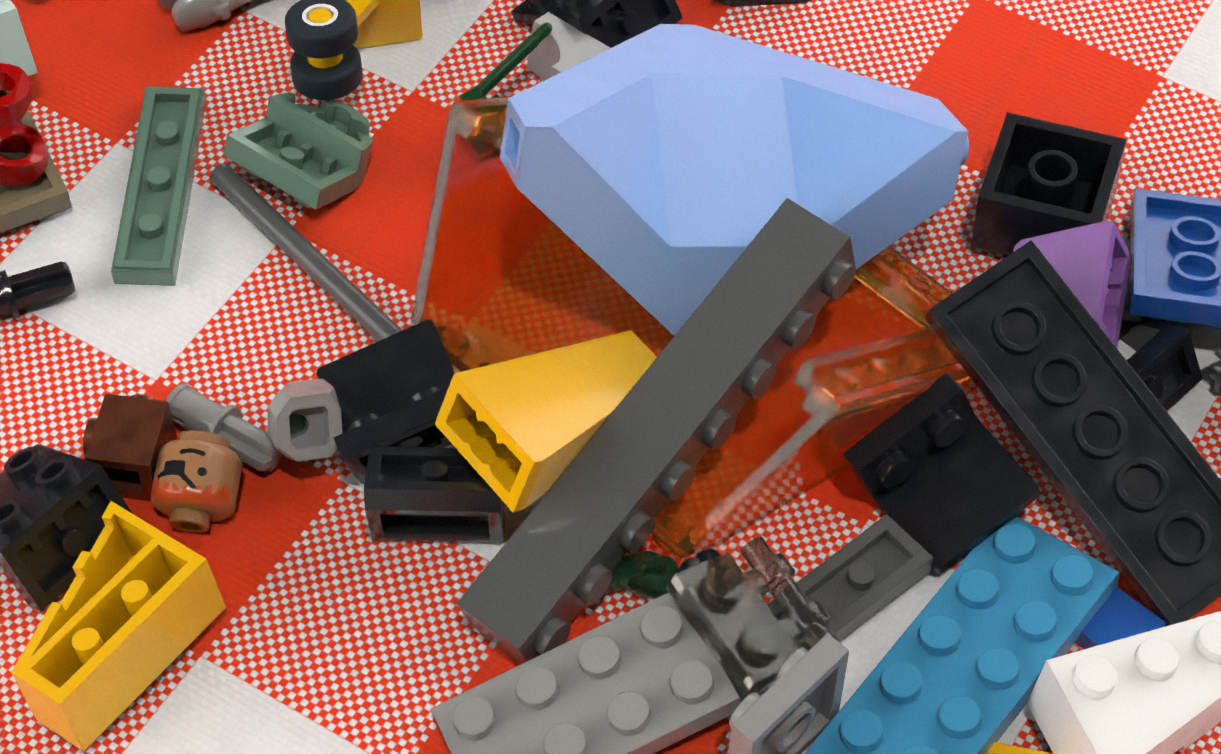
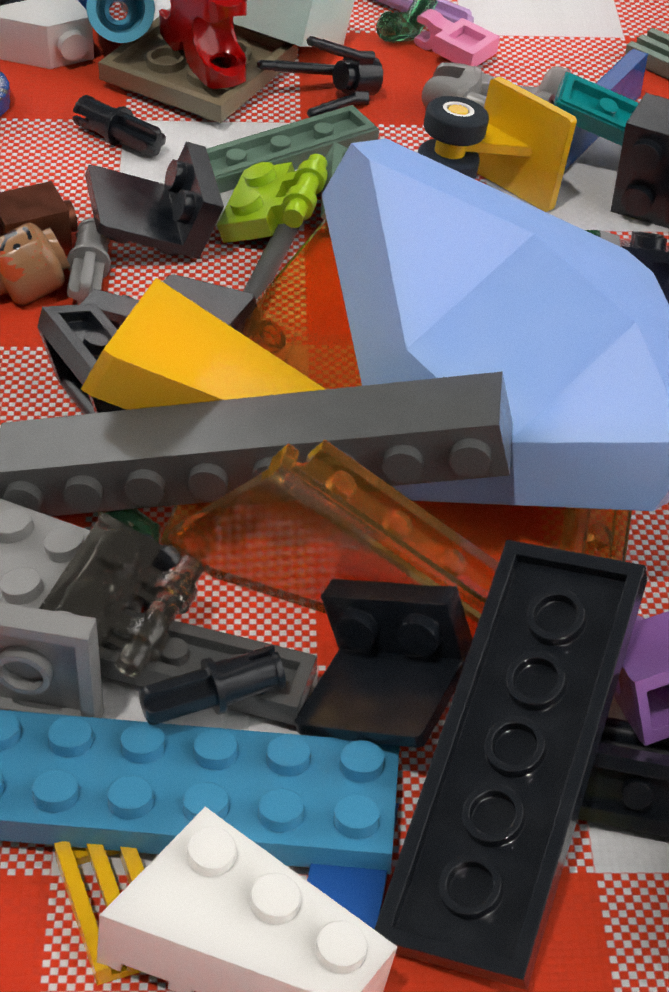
camera: 55 degrees right, 10 degrees down
(103, 60) = (356, 75): none -> black plant
(205, 320) = (164, 216): none -> black bracket
(244, 244) = (271, 197): none -> lime plate
(305, 420) = (110, 271): light grey rock -> none
(890, 600) = (214, 685): none -> black axle

